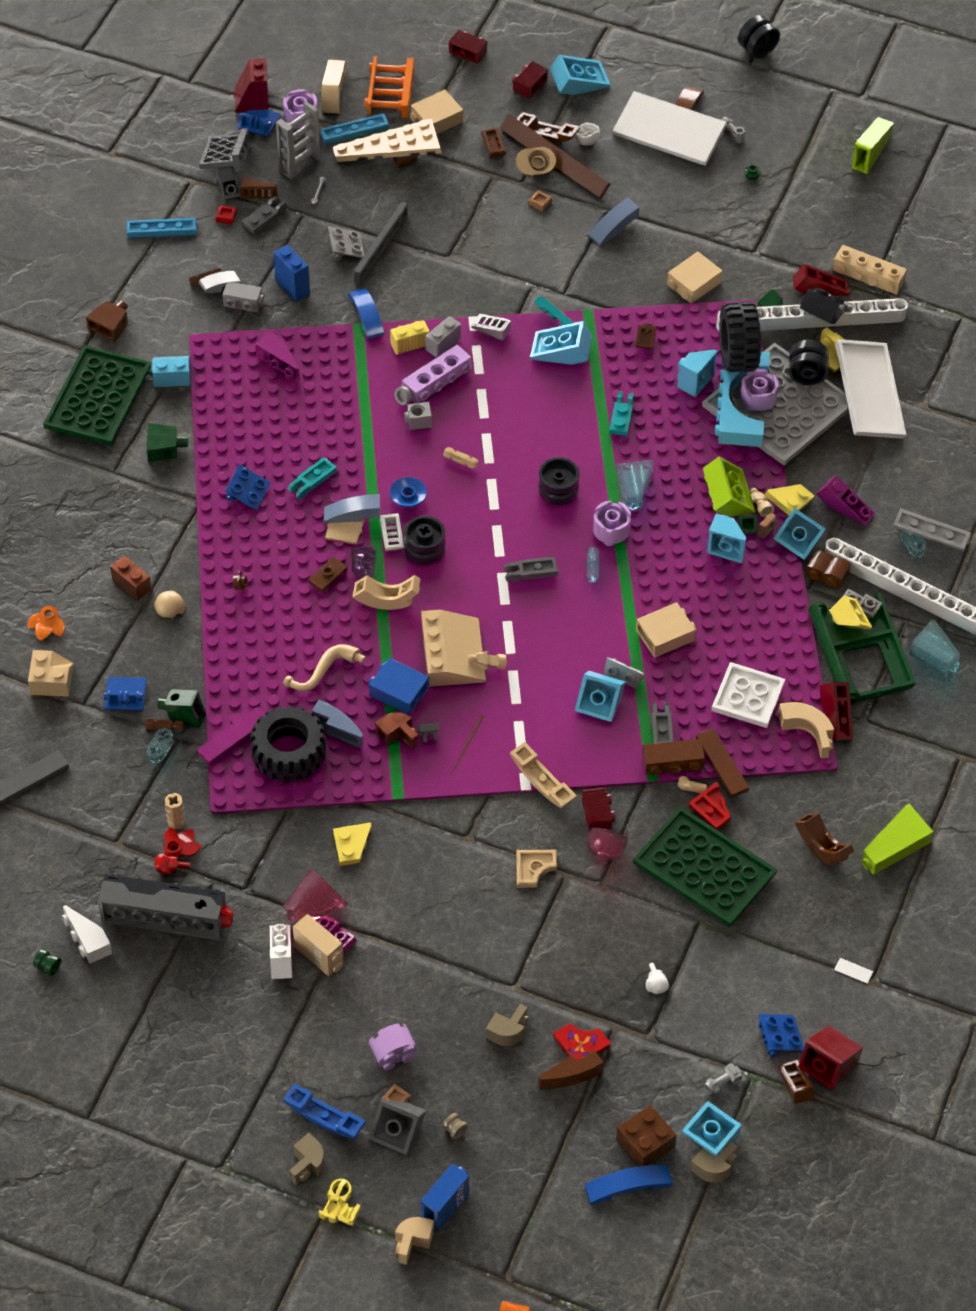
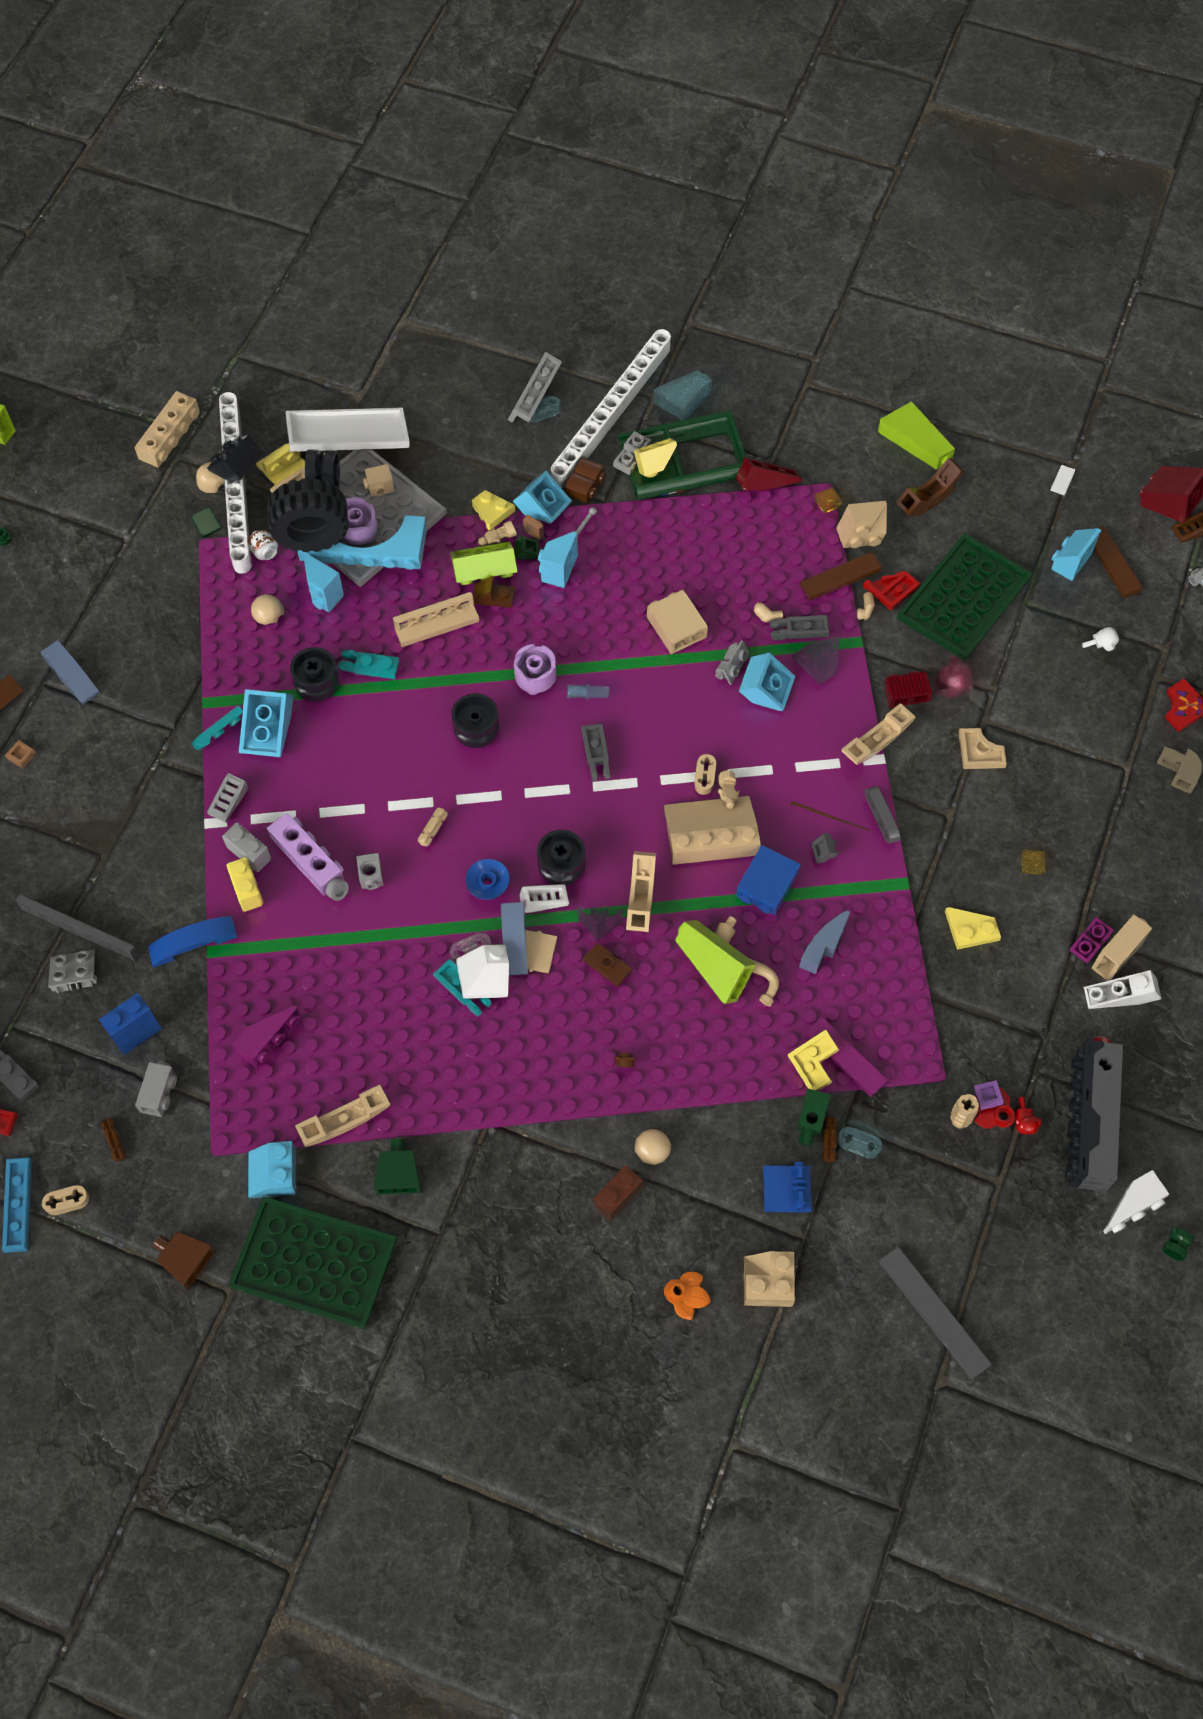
camera: 90 degrees left, 10 degrees up
(165, 252) = (64, 1195): none -> tan beam
(189, 833) = (988, 1095): none -> medium lavender plate
(205, 403) = (343, 1118): none -> tan slope
(217, 281) = (125, 1120): slope -> none
(228, 705) = (808, 1060): none -> light yellow plate
(247, 487) = (478, 1061): blue hinge -> none
(284, 723) = (870, 963): black tyre -> none
(312, 897) = (1058, 960): clear pink slope -> none
(319, 488) = (484, 972): none -> white slope
(323, 640) = (716, 960): none -> lime slope
(350, 483) = (468, 944): none -> clear beam
(397, 726) = (825, 881): copper brick -> none
(415, 897) = (1033, 862): none -> clear yellow plate
(461, 775) = (882, 814): none -> dark grey beam
(508, 647) = (700, 774): none -> tan beam
(607, 373) = (314, 674): none -> black wheel
(624, 736) = (819, 658): none -> clear purple slope
(634, 482) = (476, 649): clear light blue slope -> none
(646, 336) = (257, 637): reddish brown bracket -> none
(665, 457) = (437, 621): none -> tan fence
(673, 757) = (842, 615): reddish brown brick -> none
(676, 343) = (267, 609): none -> tan hair
(680, 695) = (765, 613): none -> tan arm
(694, 277) = (165, 593): tan brick -> none
(695, 500) = (492, 594): none -> reddish brown slope
(748, 695) = (755, 550): white plate -> none
(751, 1001) = (1116, 565): none -> reddish brown tile
(753, 961) = (1075, 552): none -> medium azure slope
(764, 560) = (592, 511): none -> light grey hinge
(775, 778) = (863, 524): none -> tan slope
(780, 1033) = (1149, 538): blue hinge -> none
(807, 408) = (378, 480): none -> tan brick
(808, 718) = (789, 492): tan arch -> none
(810, 277) = (183, 476): dark red slope -> none
(811, 758) = (828, 500): none -> clear yellow plate
(845, 501) = (492, 463): magenta slope -> none

